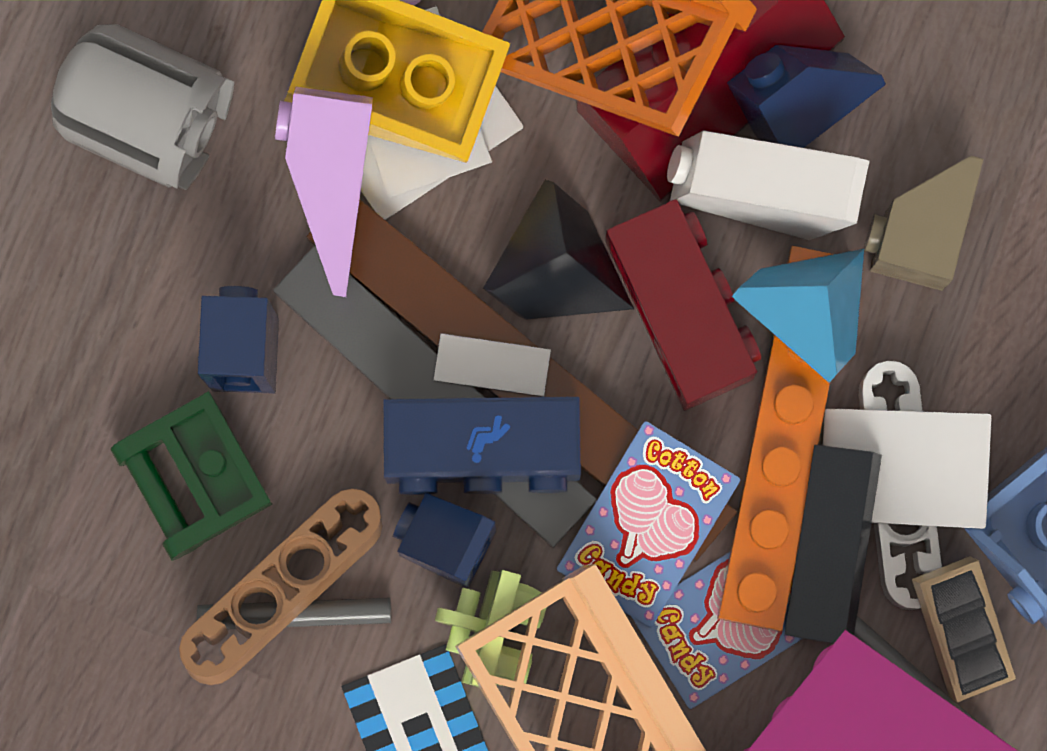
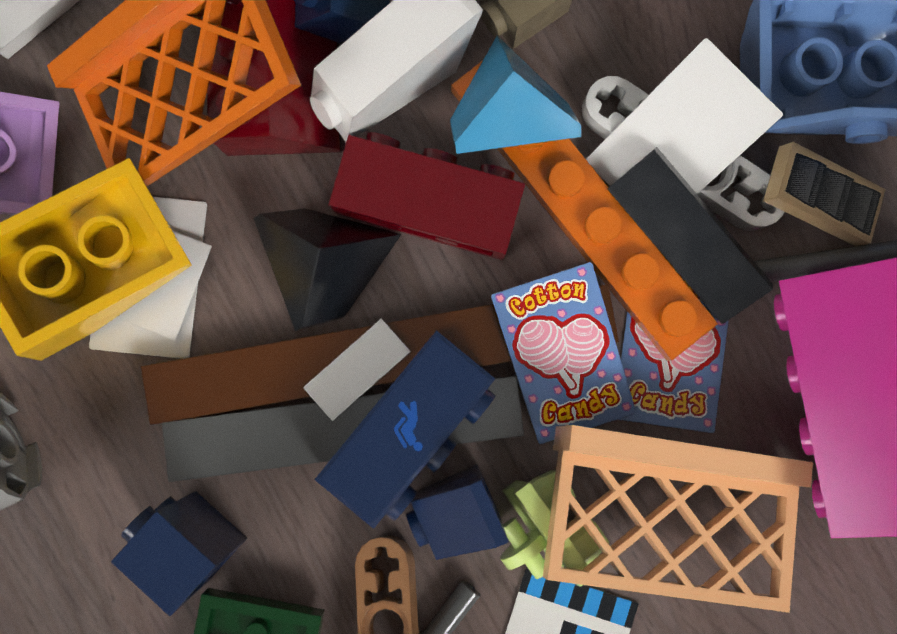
camera: 45 degrees left, 5 degrees up
(326, 161) = (96, 373): lavender slope -> none

